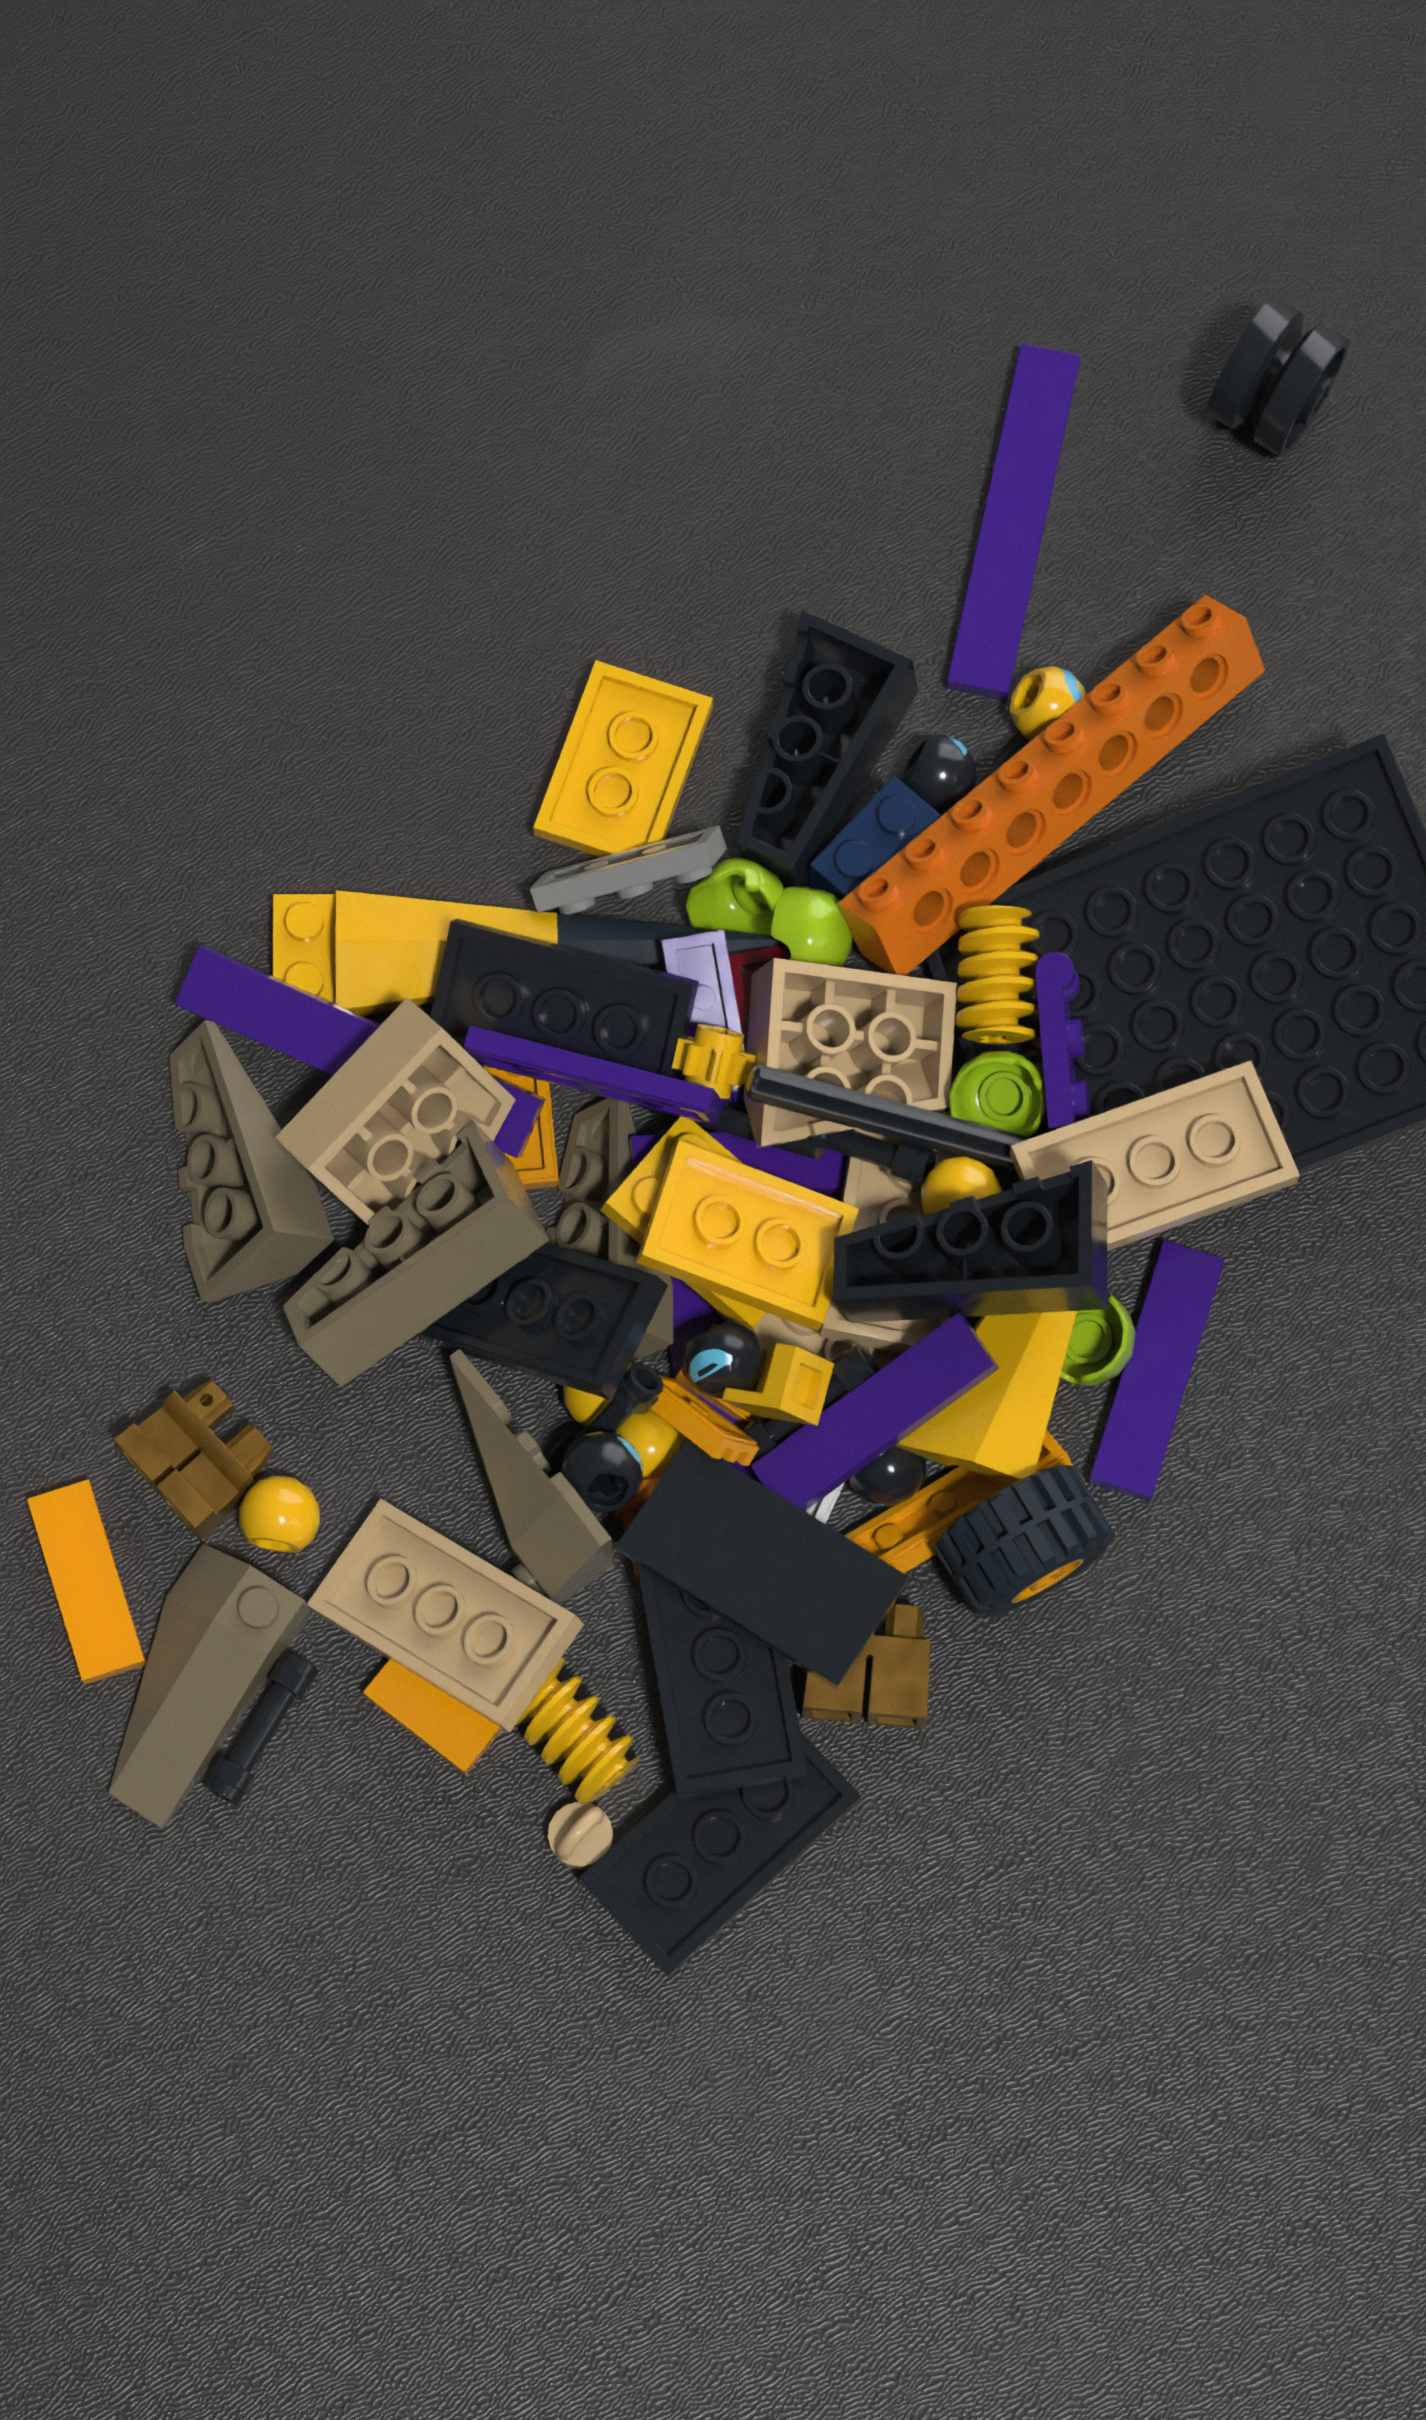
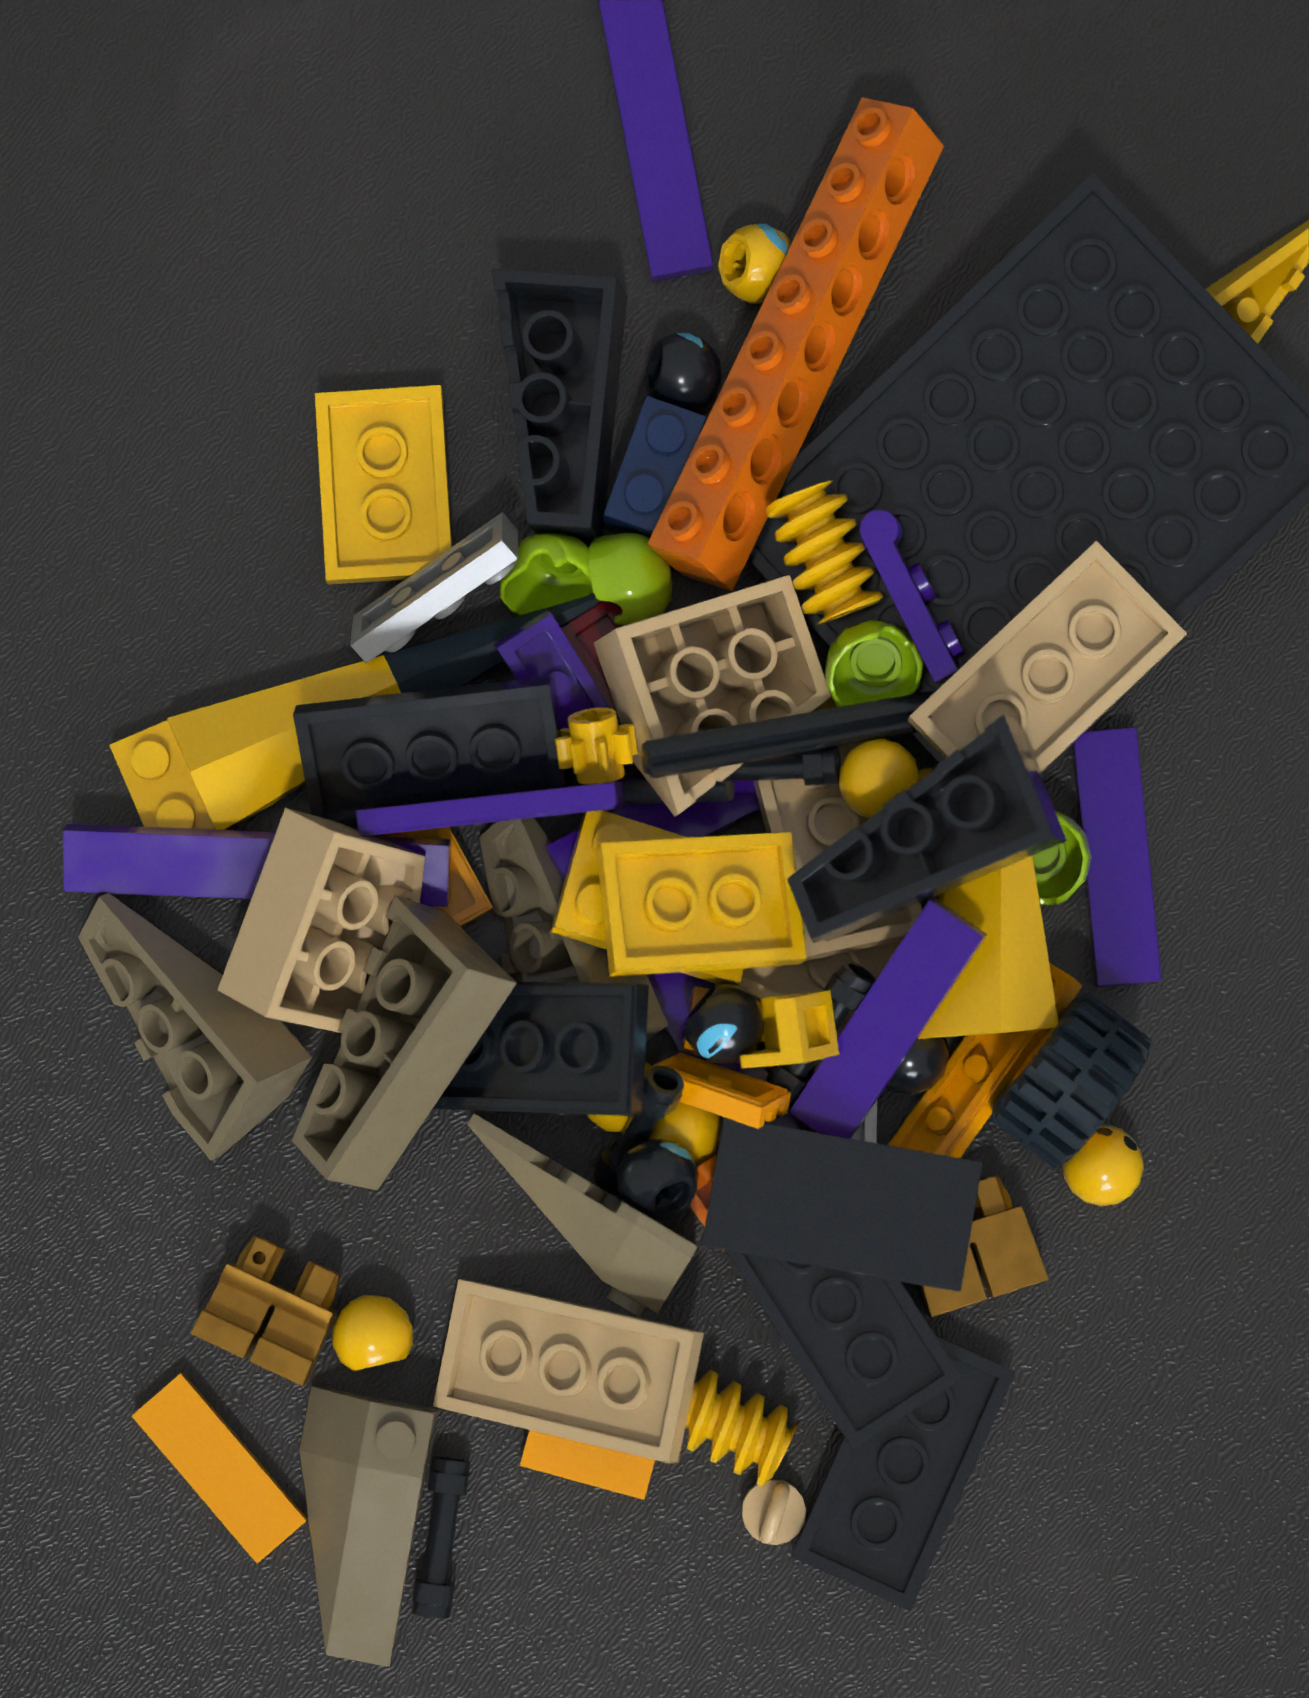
camera: 25 degrees left, 10 degrees up
(1025, 1643) = (1105, 1167): none -> yellow piece

